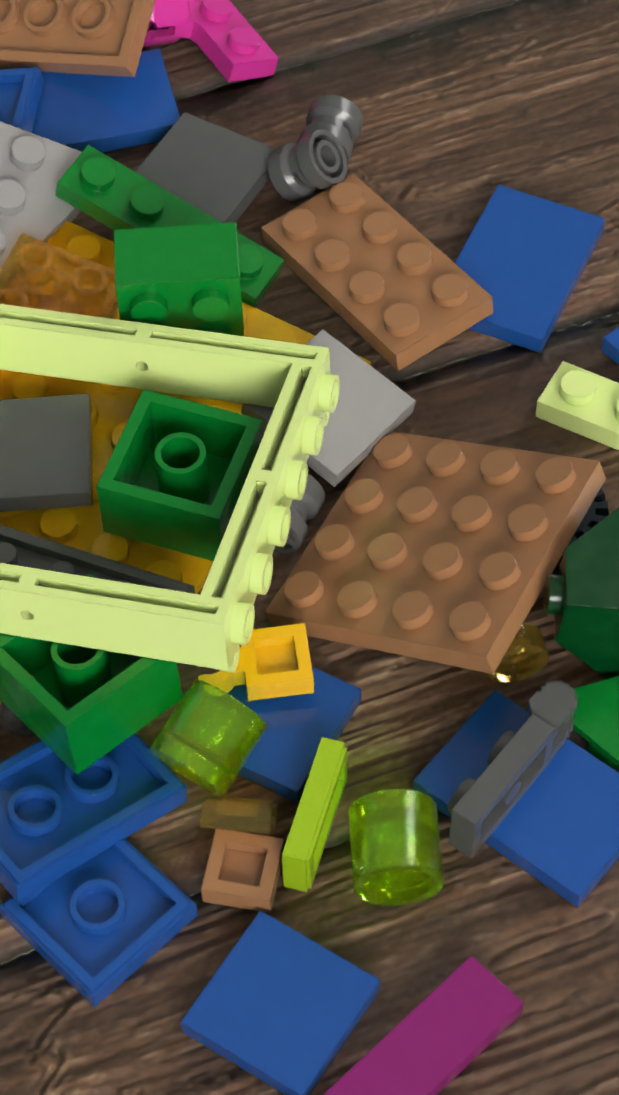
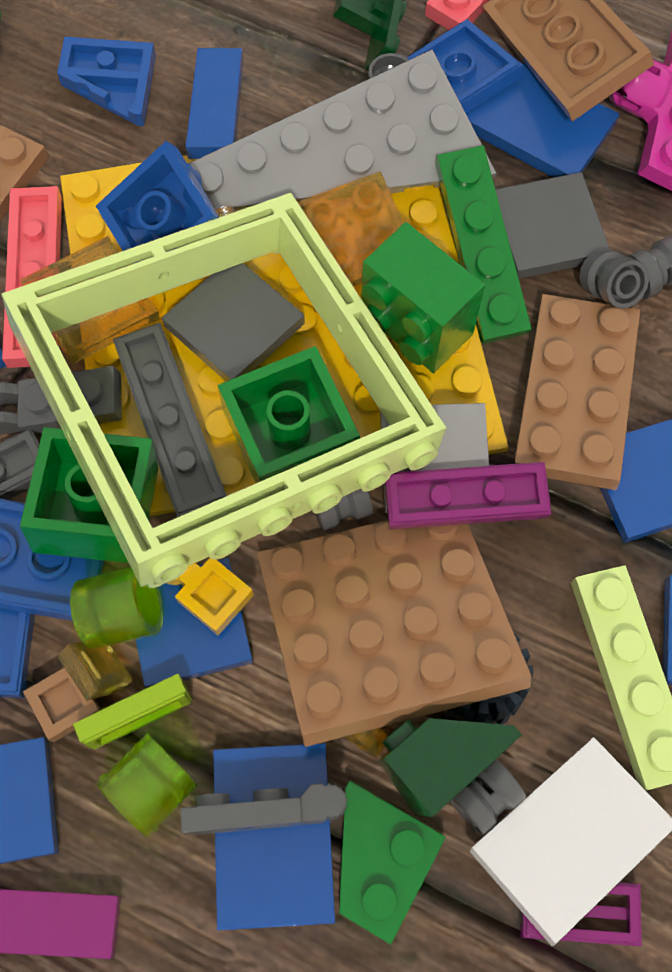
camera: 45 degrees right, 15 degrees up
(391, 406) = (467, 495): none -> magenta tile

